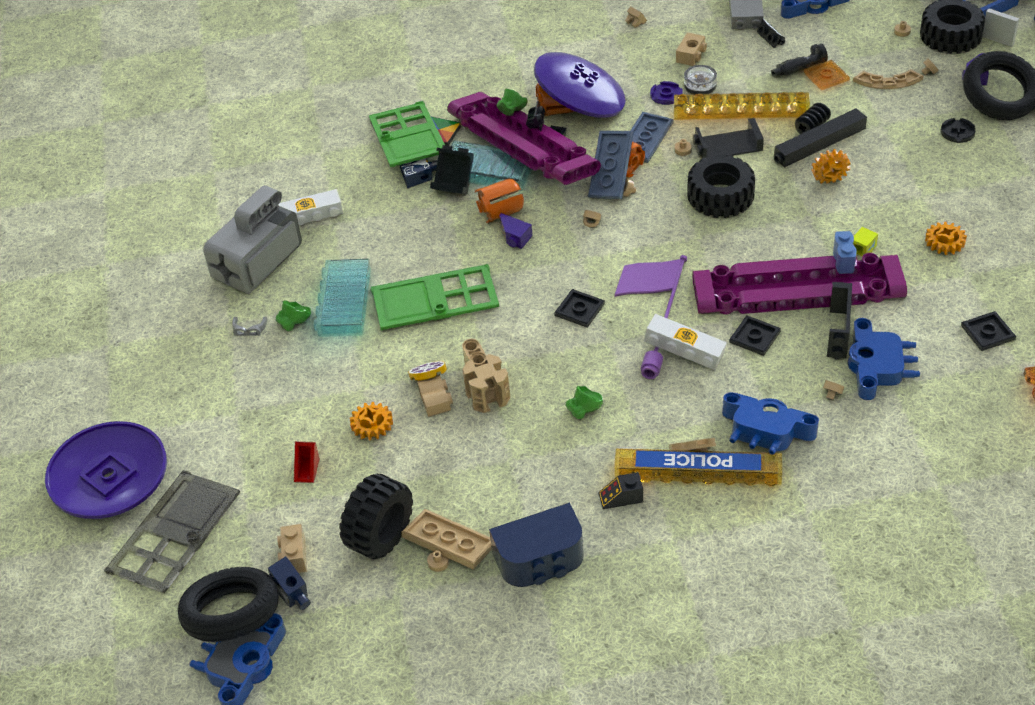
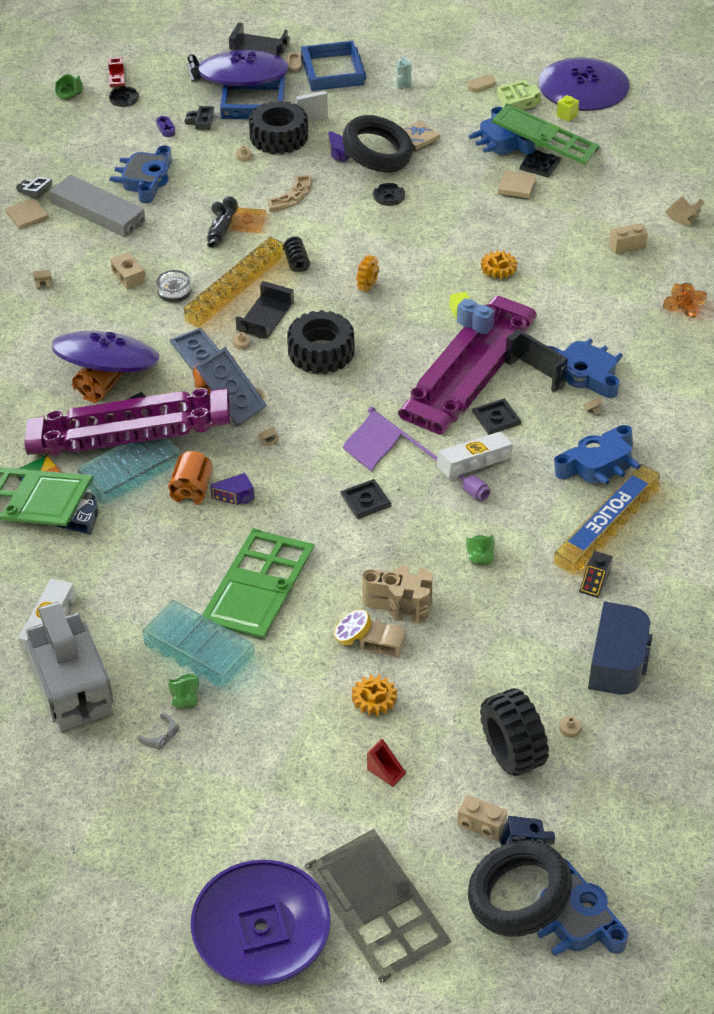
camera: 60 degrees left, 0 degrees up
(449, 538) = (565, 701): tan tile -> none
(453, 170) = (119, 487): black panel -> none
(511, 102) = (85, 402): bright green hair -> none
(536, 117) = (122, 397): black hinge -> none
(665, 92) = (161, 314): dark purple tile -> none
(698, 445) = (586, 507): tan wing -> none
(770, 34) = (162, 219): black hinge -> none
(820, 137) = (321, 263): black brick -> none
(929, 67) = (306, 165): tan tile -> none
(988, 331) = (607, 299): black tile -> none

